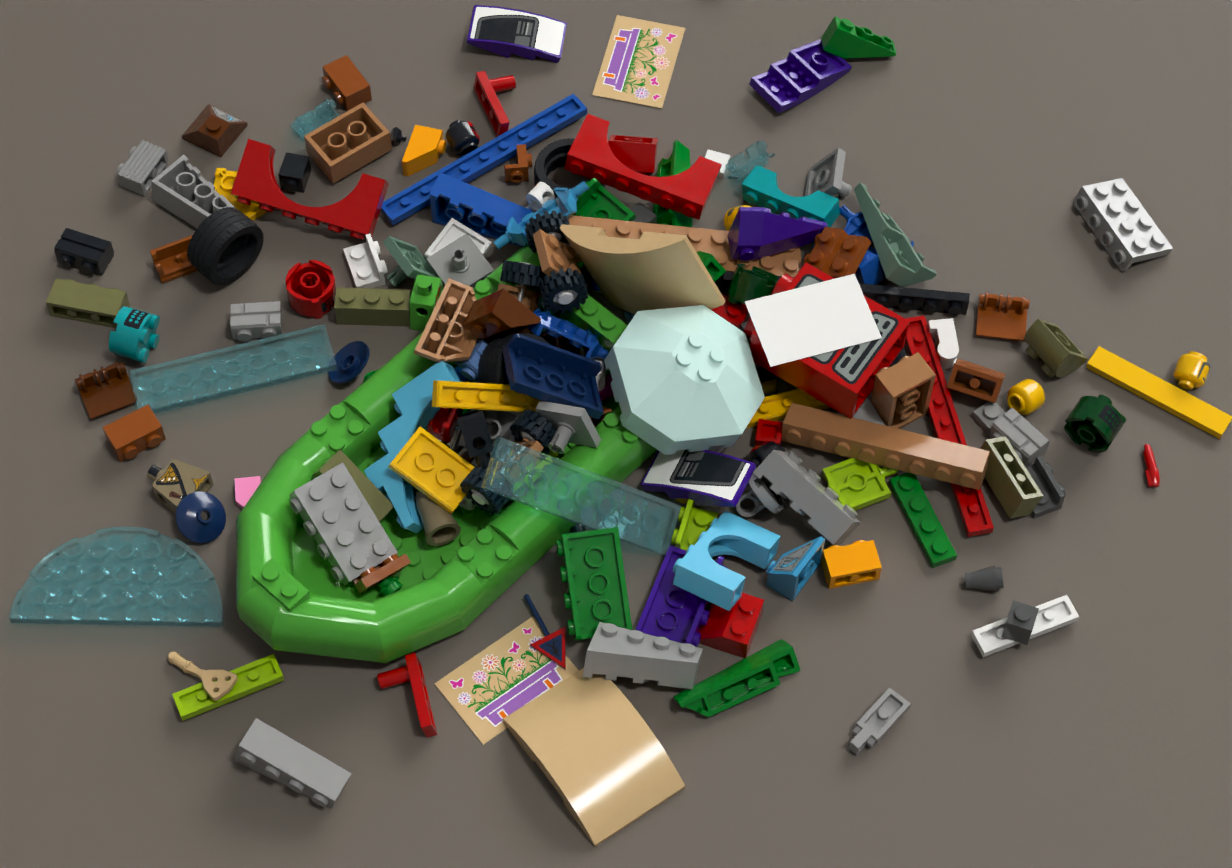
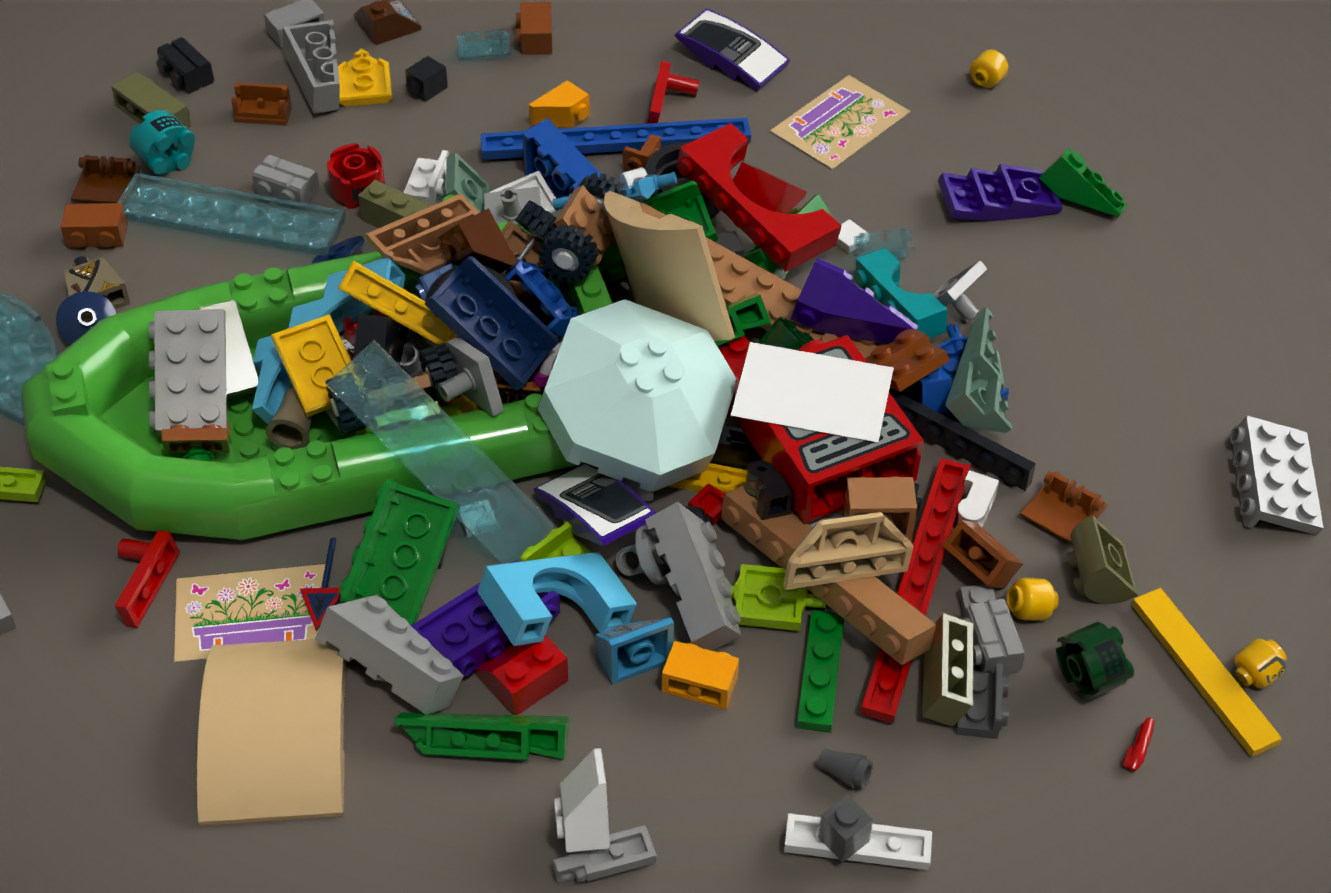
camera: 30 degrees right, 10 degrees down
(225, 246) = (304, 127): black tyre -> none
(348, 142) = (493, 72): medium nougat brick -> none
(354, 213) = (447, 128): red arch -> none
(396, 136) = (548, 86): black rock -> none
(462, 137) = (607, 110): black head -> none
(813, 405) = (768, 489): none -> black leg
(850, 694) = (583, 806): none -> white slope
(904, 429) = (848, 551): none -> tan wedge

